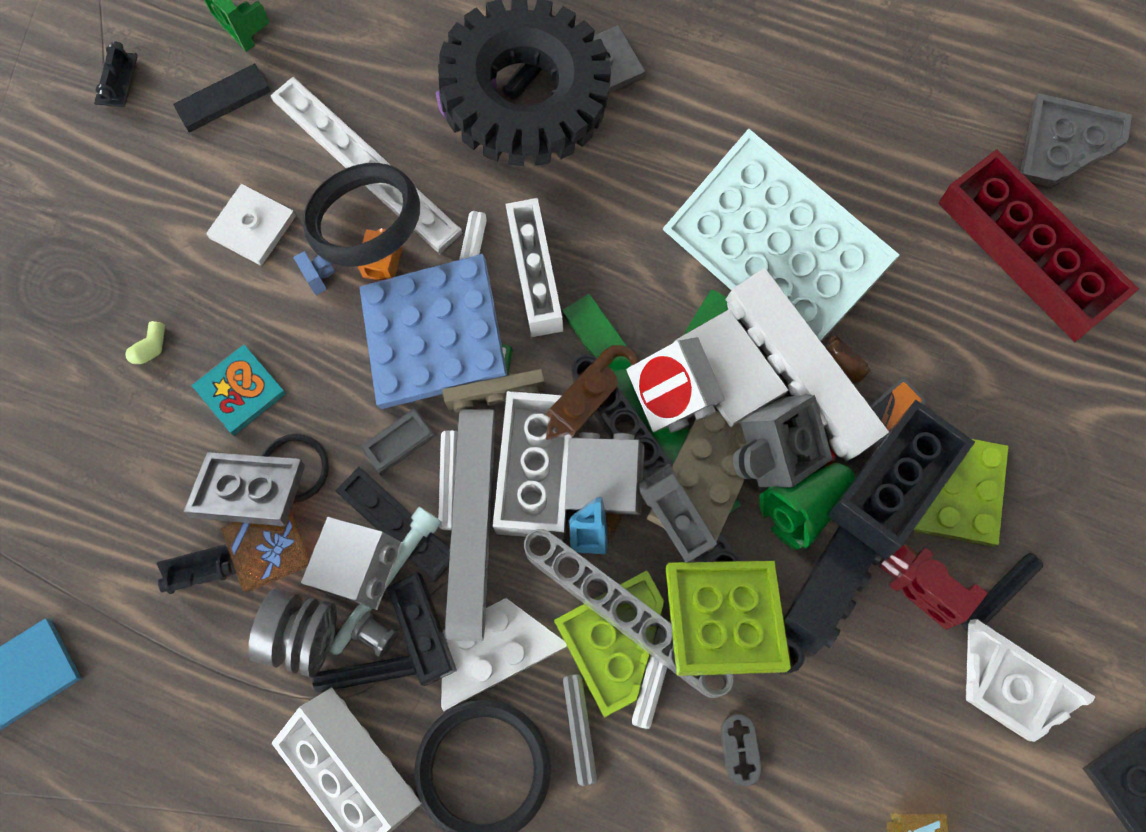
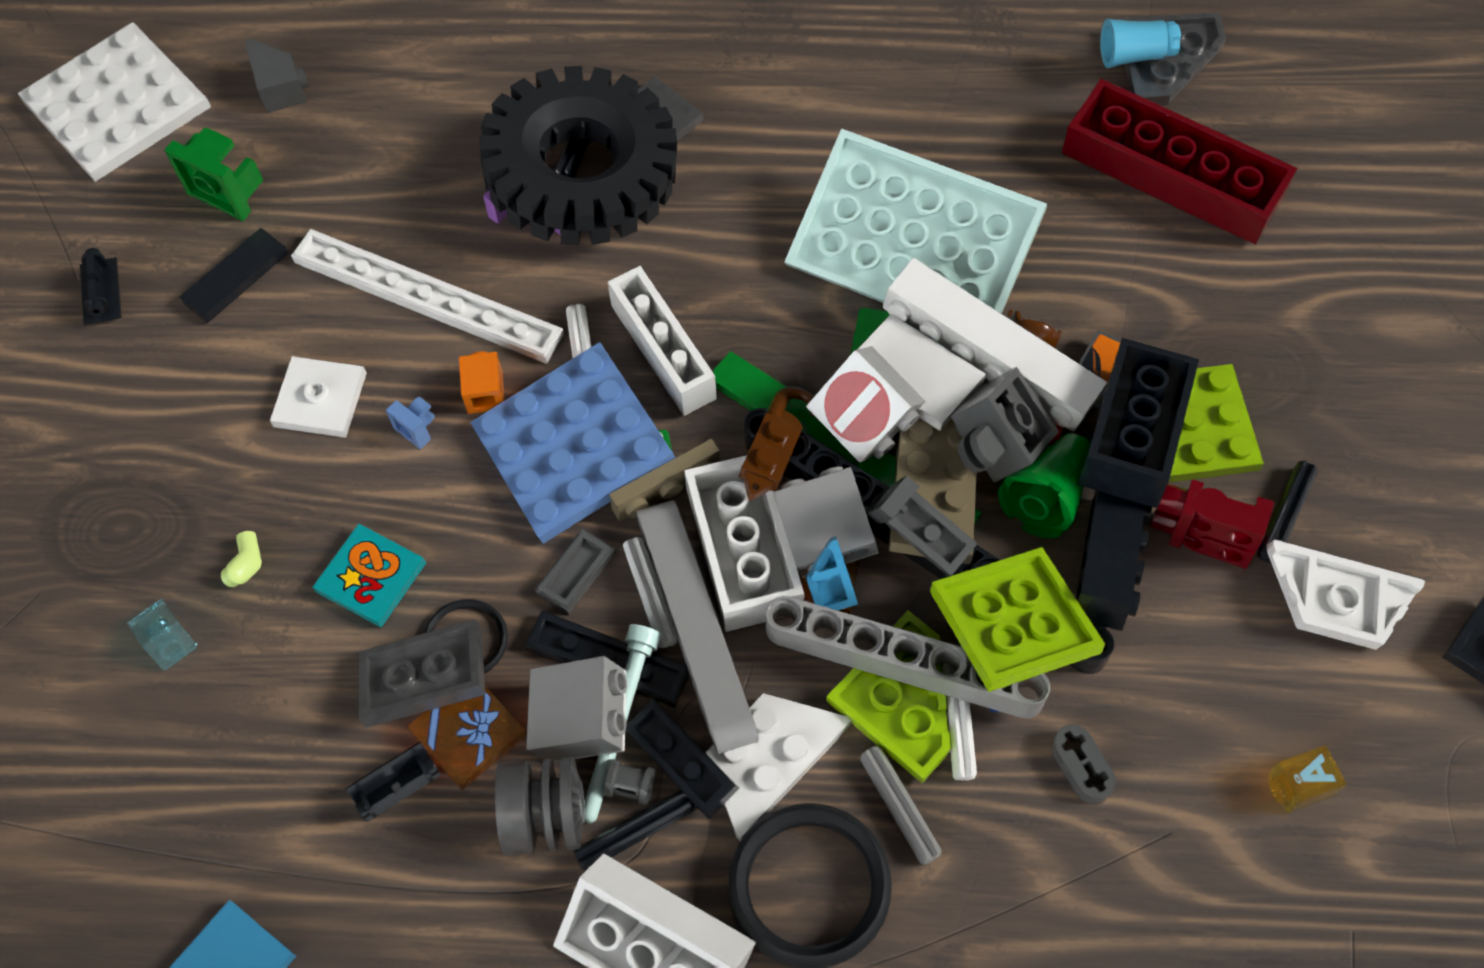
camera: 20 degrees left, 10 degrees down
(65, 385) = (162, 635): none -> clear light blue bracket
(344, 182) = (471, 375): black tyre -> none
(1045, 122) = (1138, 41): none -> medium azure plant

